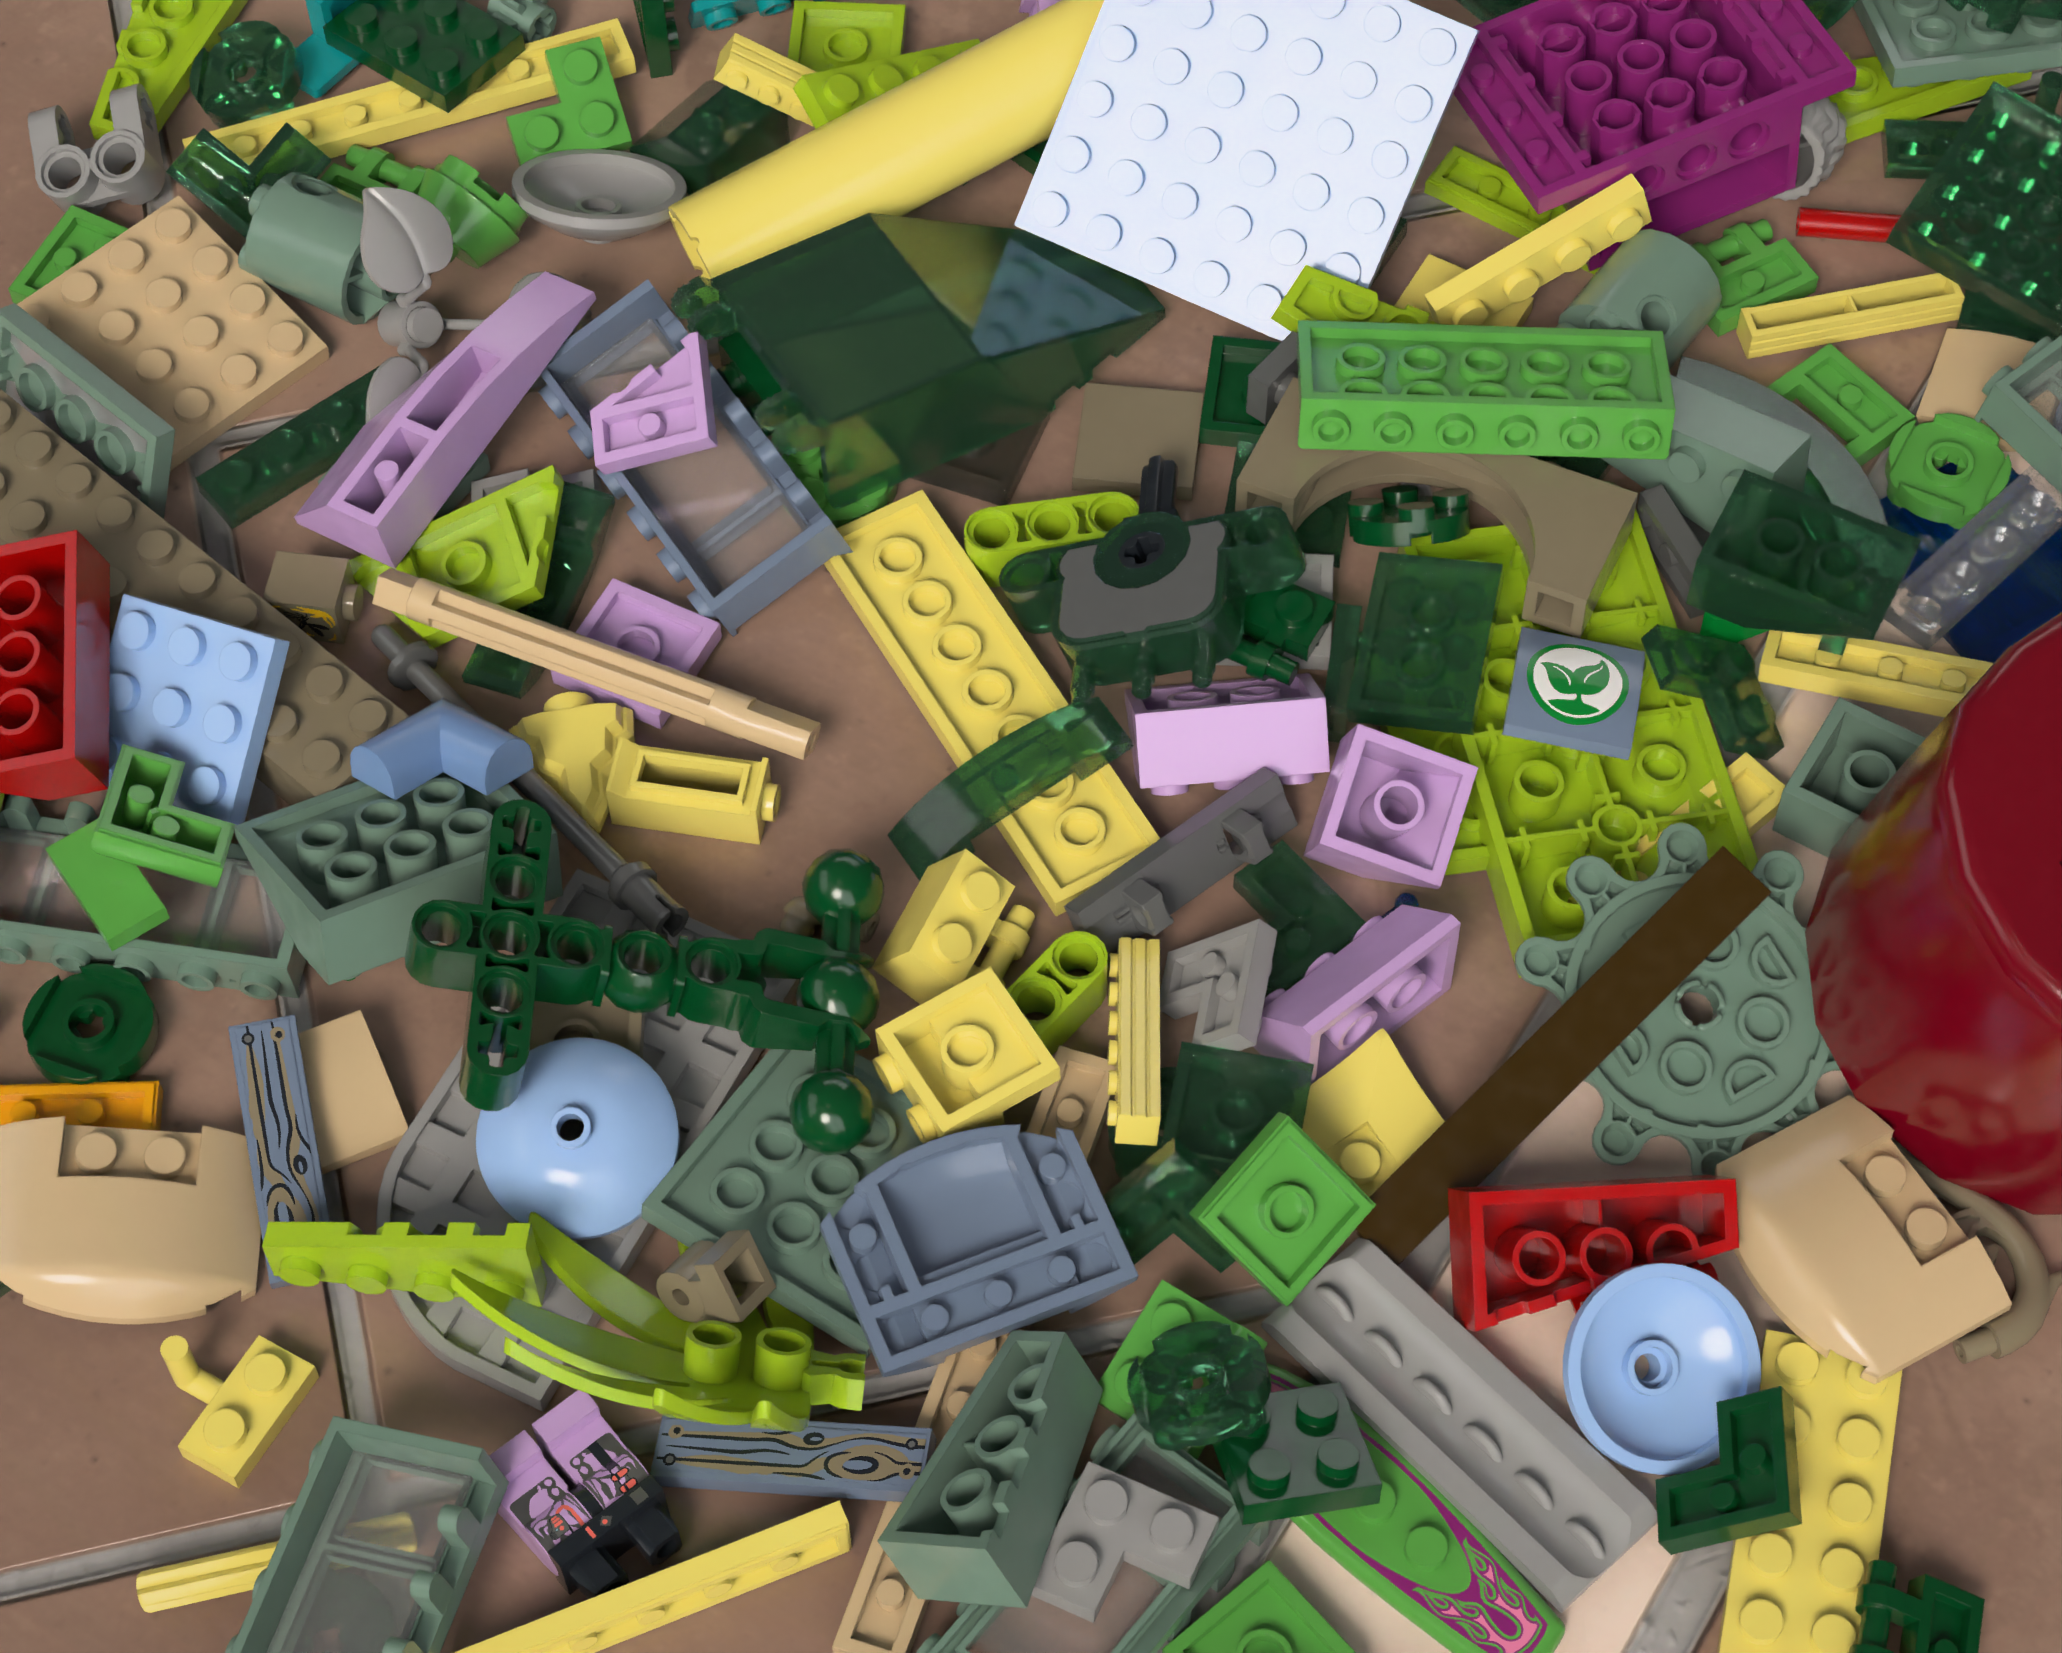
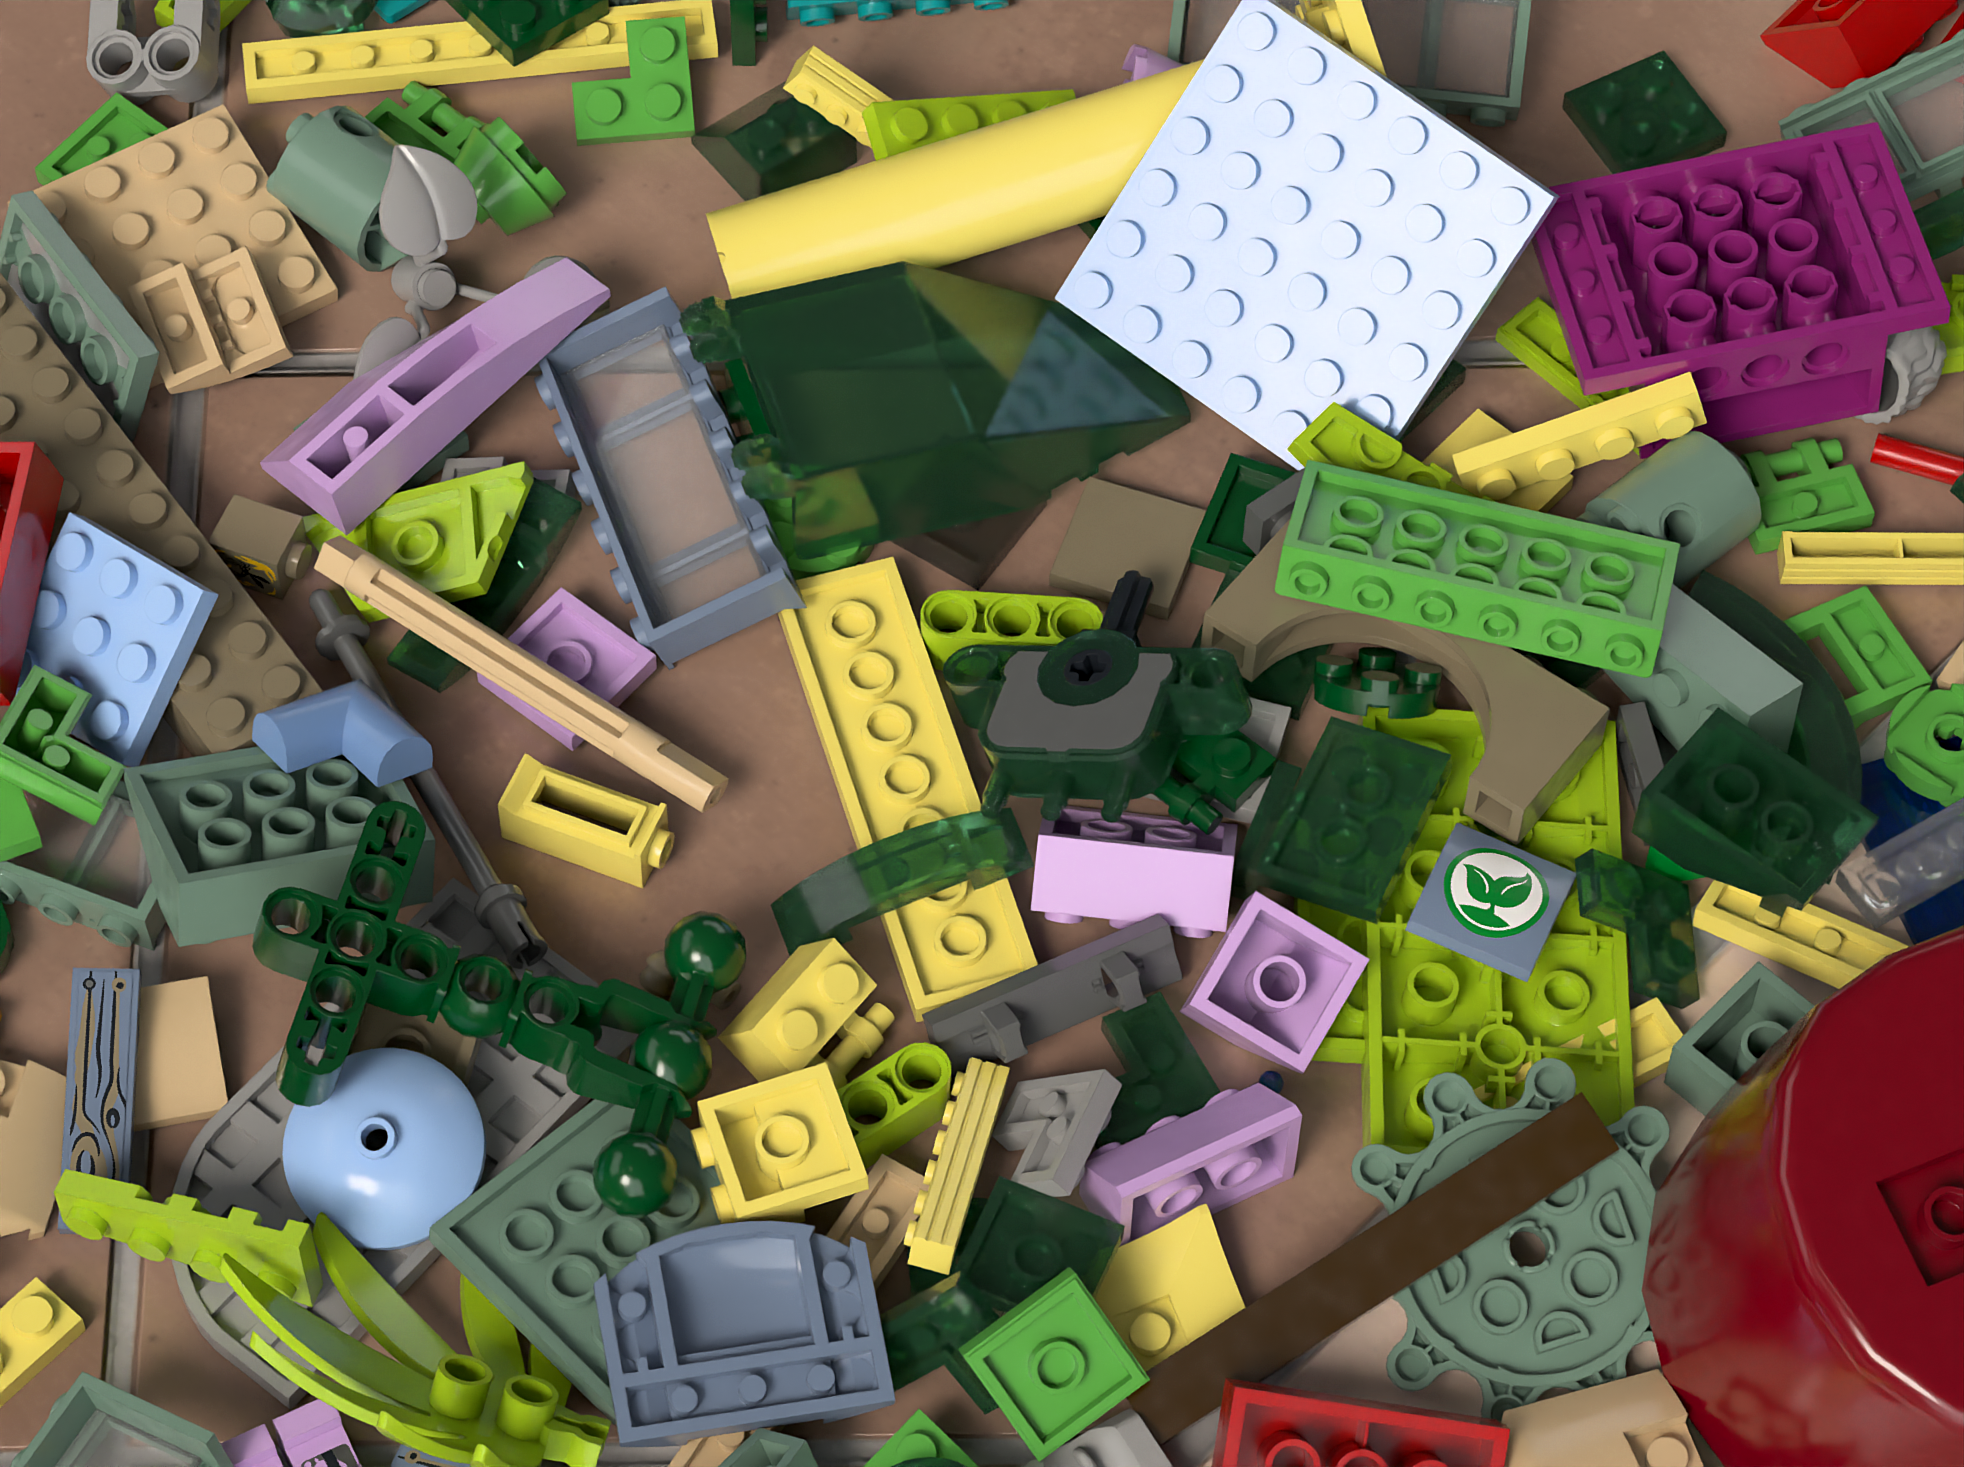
camera: 10 degrees right, 0 degrees up
(214, 396) = (210, 322): none -> tan slope
(227, 182) = (275, 100): clear green brick -> none
(286, 456) = (270, 397): clear green plate -> none
(576, 747) = (479, 754): light yellow rock -> none
(597, 193) = (643, 180): light grey dish -> none
(658, 413) = (641, 429): lavender wing -> none
(710, 1276) = (478, 1311): dark tan leg -> none
(845, 33) = (937, 60): lime plate -> none

